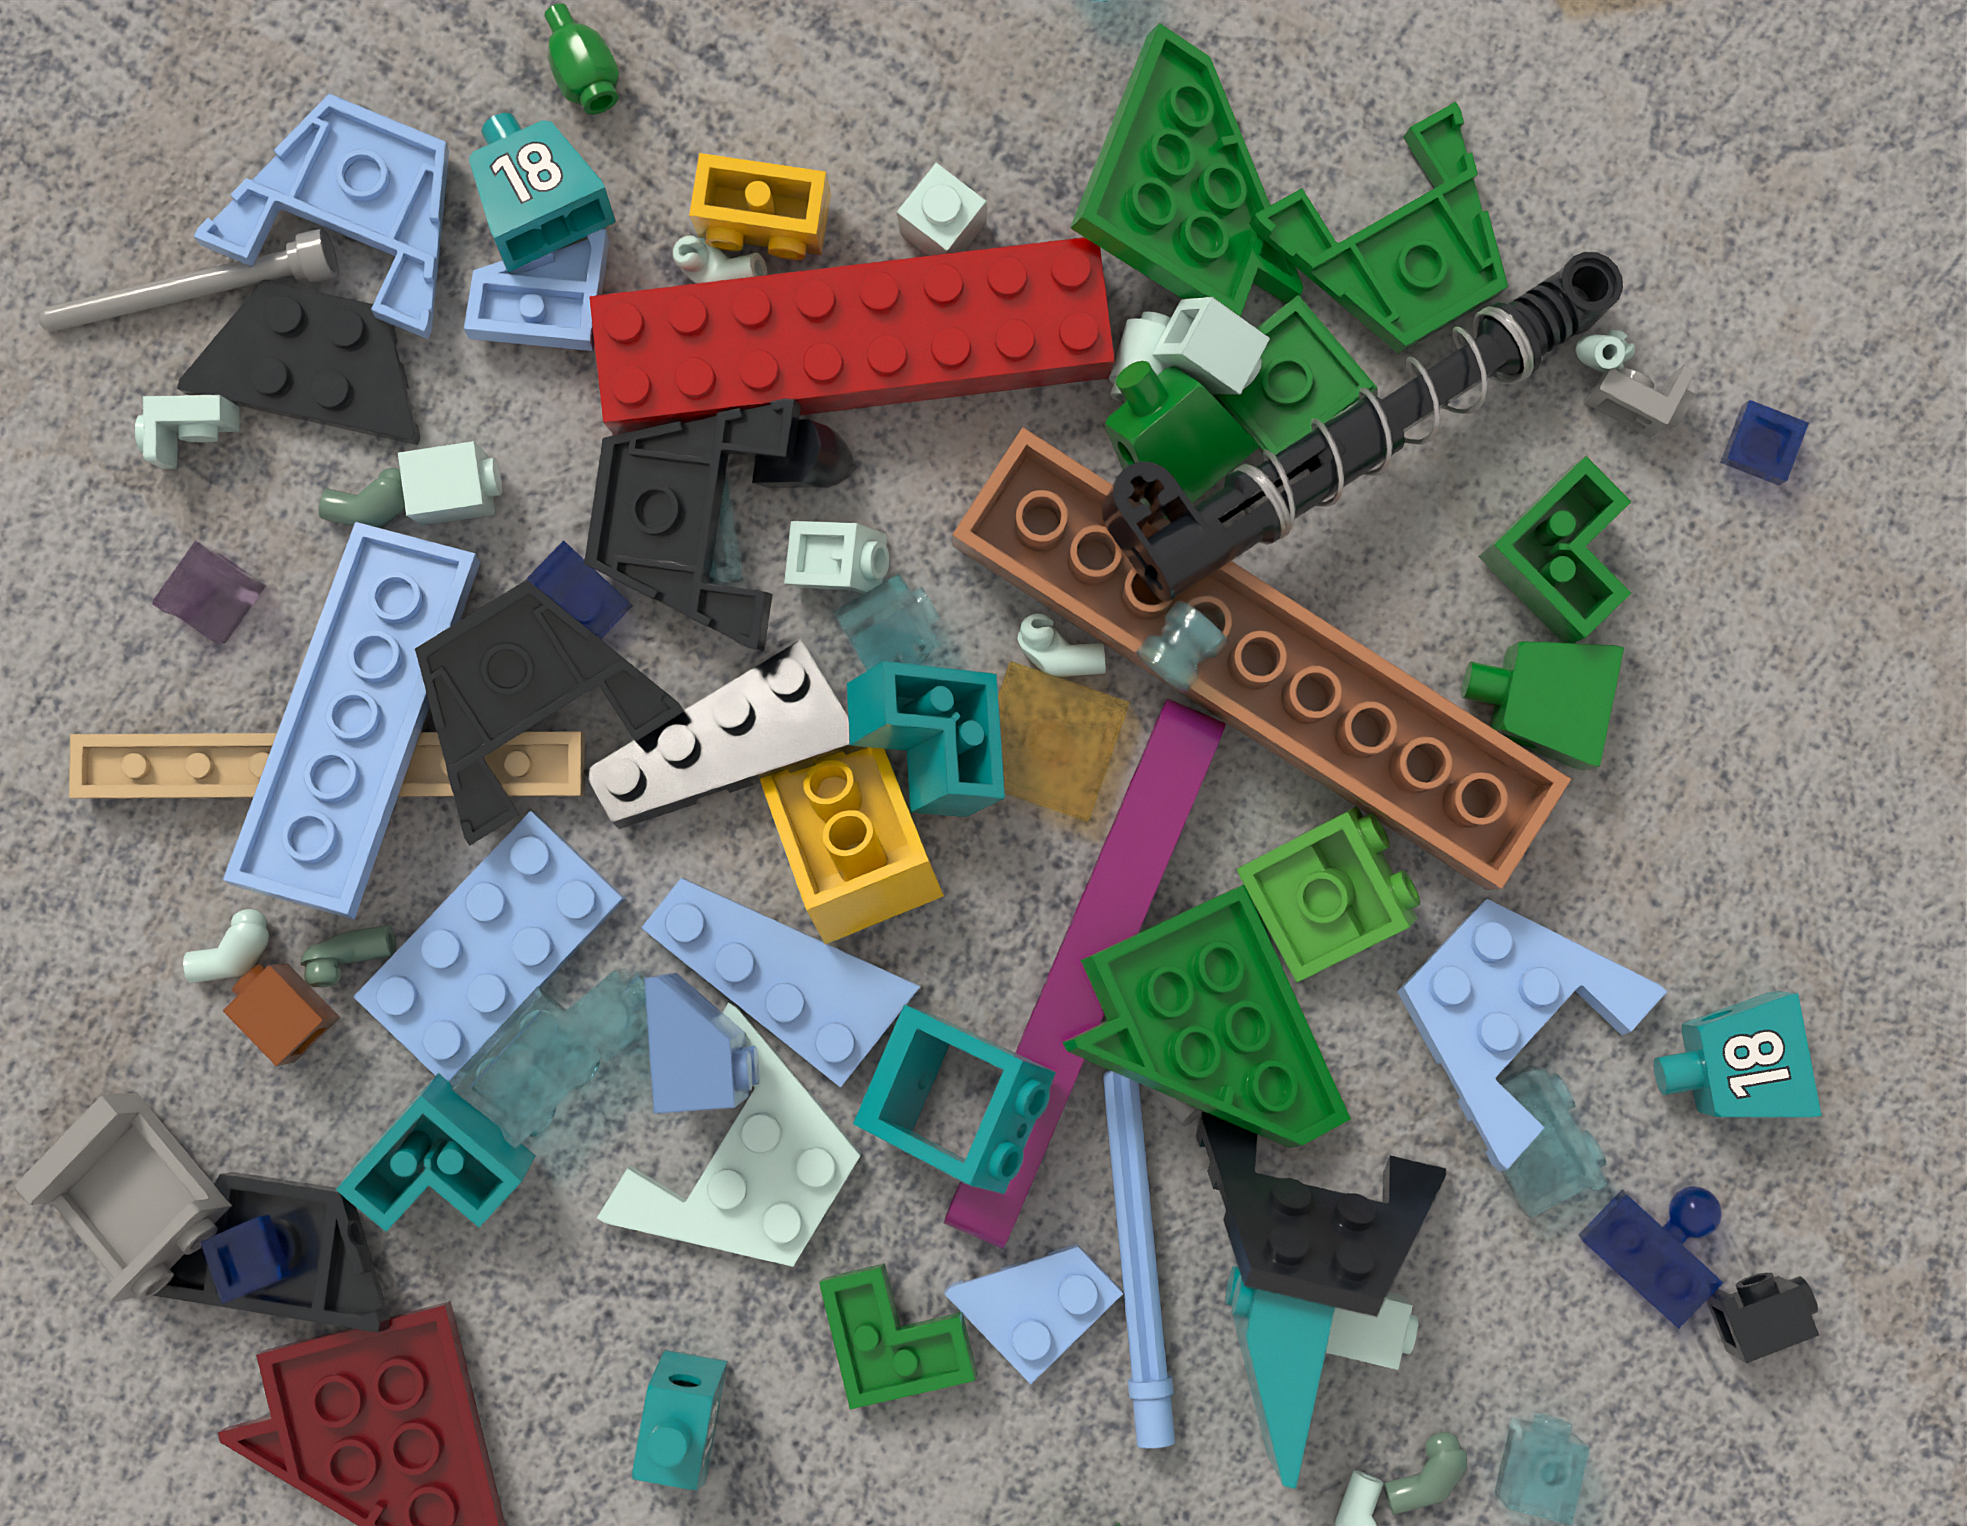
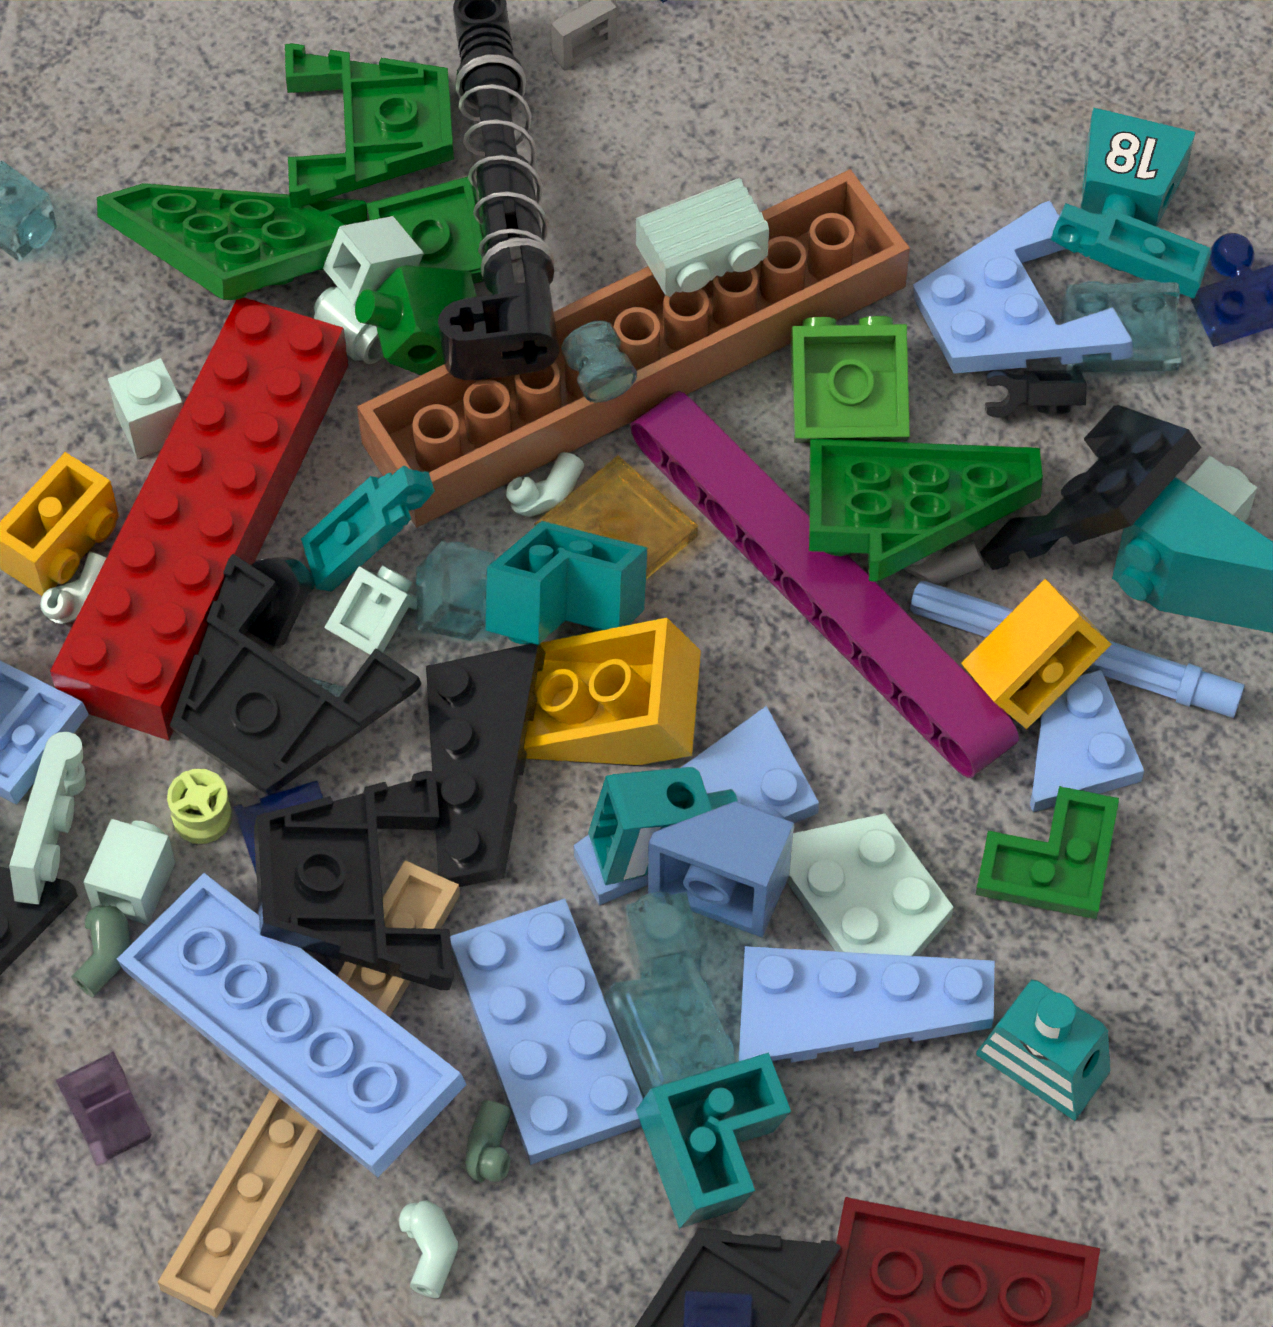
camera: 65 degrees left, 25 degrees down
(279, 1012) = (509, 1220): dark orange brick -> none
(454, 377) = (46, 815): none -> light aqua plate
(537, 501) = (203, 792): none -> yellowish green wheel
(637, 1215) = (842, 1000): none -> light blue wing
(692, 941) = (638, 805): none -> teal torso
(902, 503) = (363, 524): none -> teal hinge
(907, 1077) = (832, 743): teal window -> none
(1087, 1232) = (1035, 654): none -> yellow brick
(1388, 677) = (703, 238): none -> light aqua brick
(1424, 1089) = (1048, 390): none -> black plate
(1547, 557) = (671, 124): green brick -> none
(1551, 697) = (782, 159): green torso -> none
(1604, 351) = (535, 28): light aqua arm -> none
(1639, 1115) = (1133, 247): none -> teal hinge

